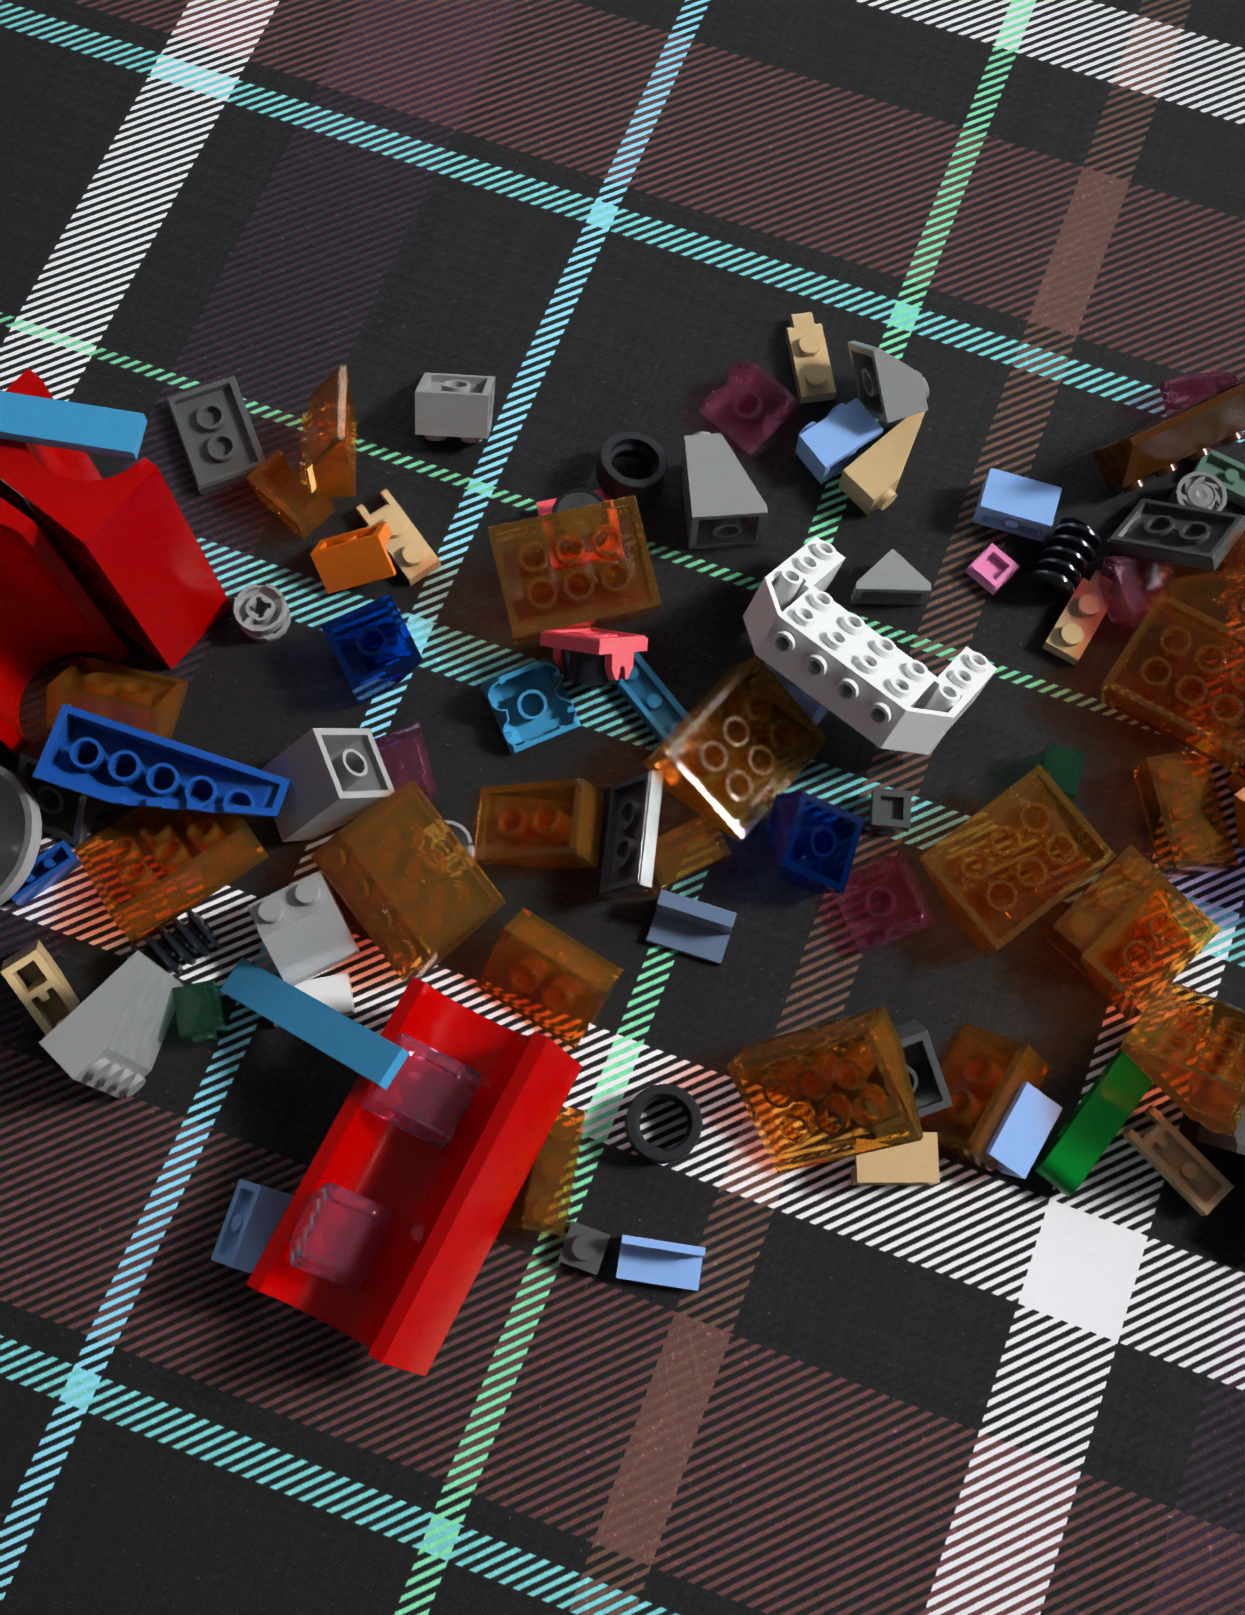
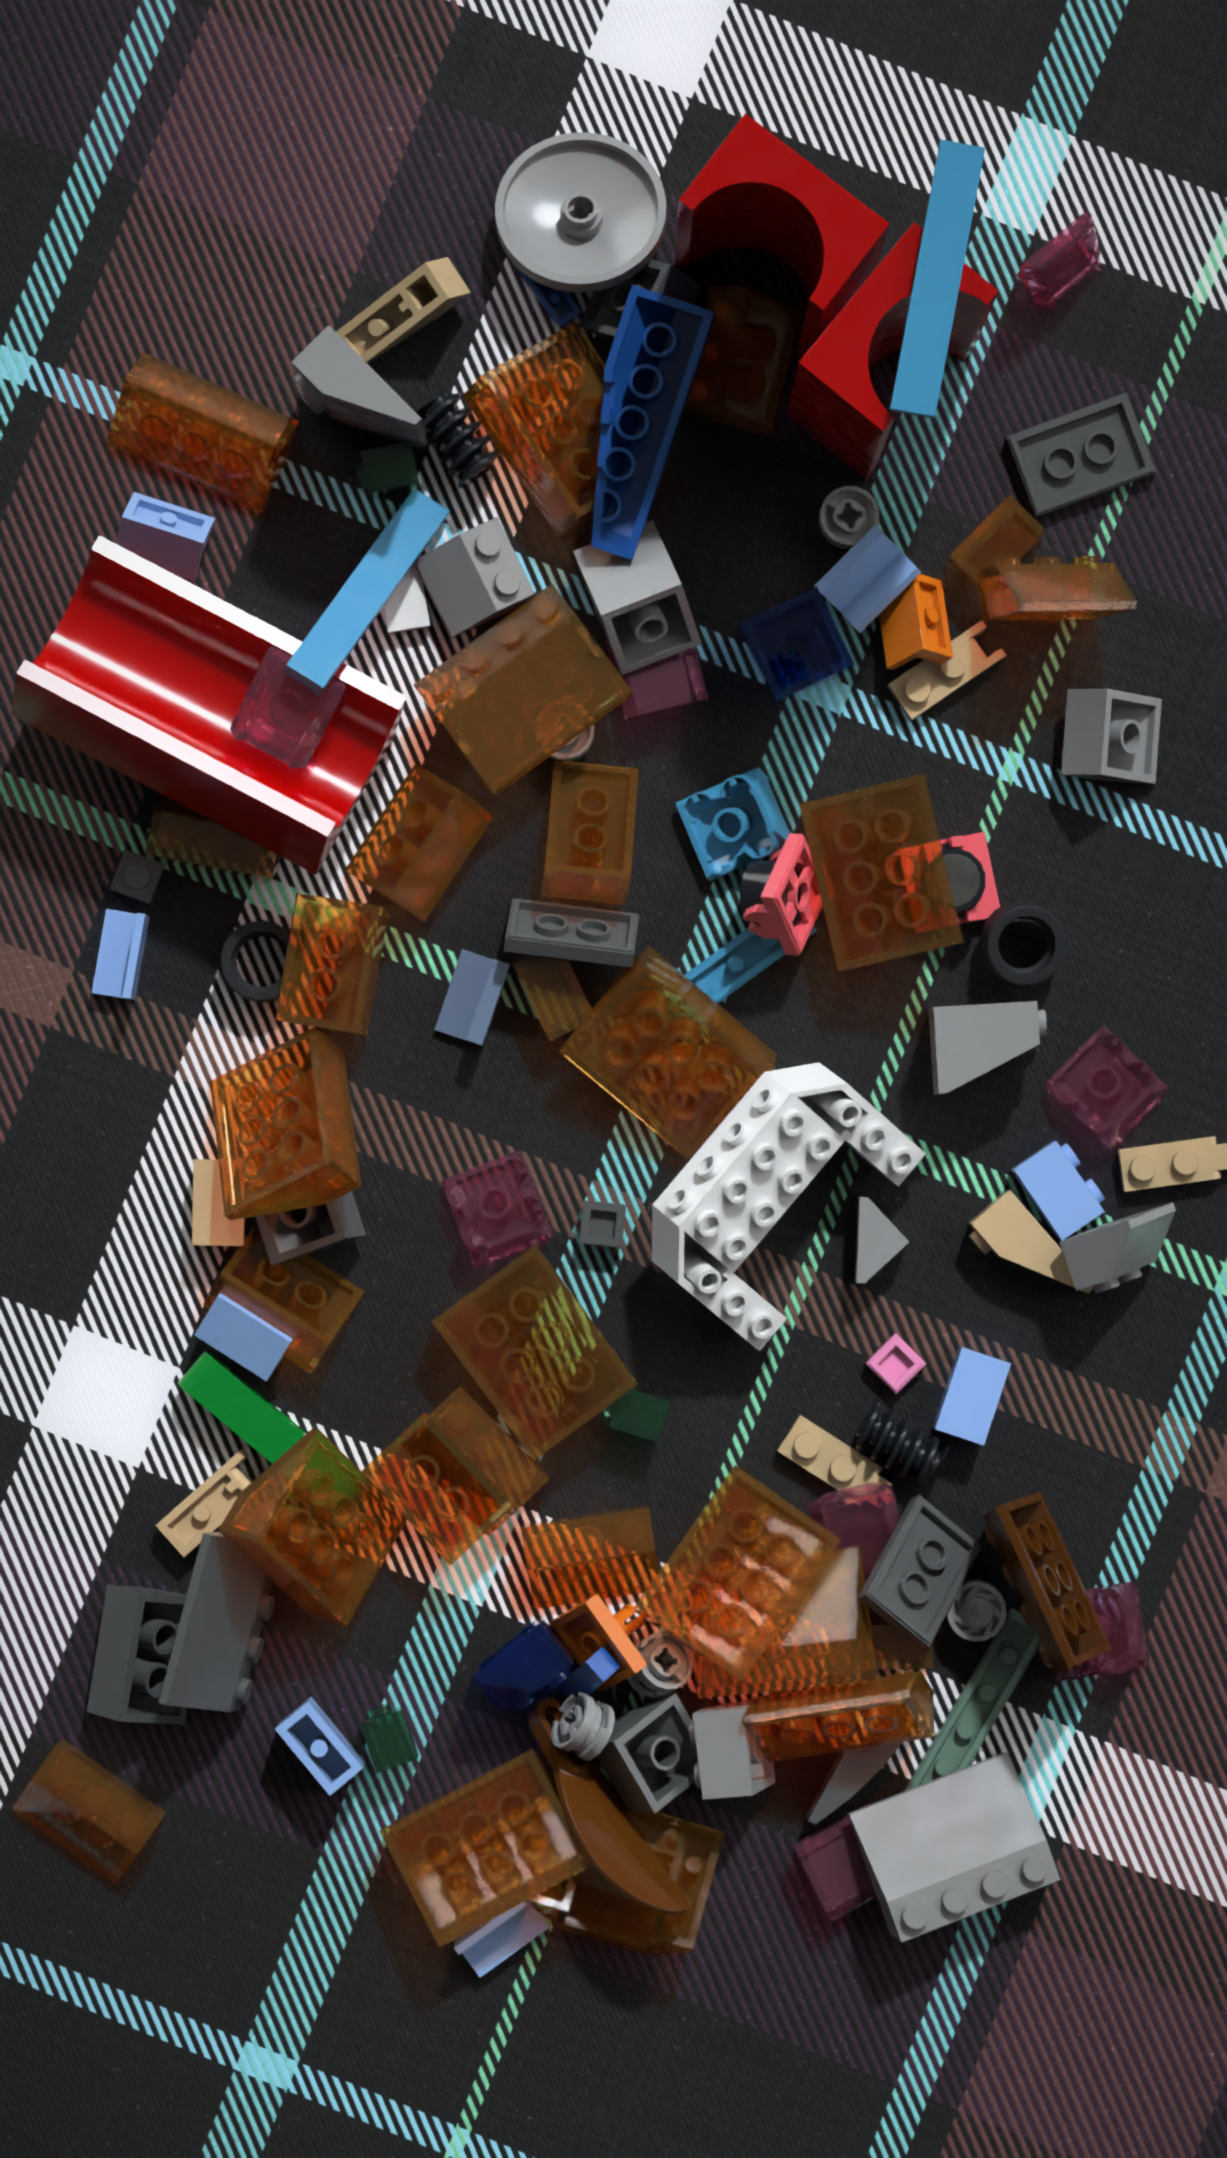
camera: 95 degrees right, 15 degrees up
(154, 1194) = (201, 431): none -> clear orange slope
(315, 589) = (867, 578): none -> light blue panel
(339, 1235) = (145, 627): clear pink slope -> none
(666, 1053) = (332, 964): none -> clear orange slope
(813, 841) = (558, 1130): clear blue slope -> none

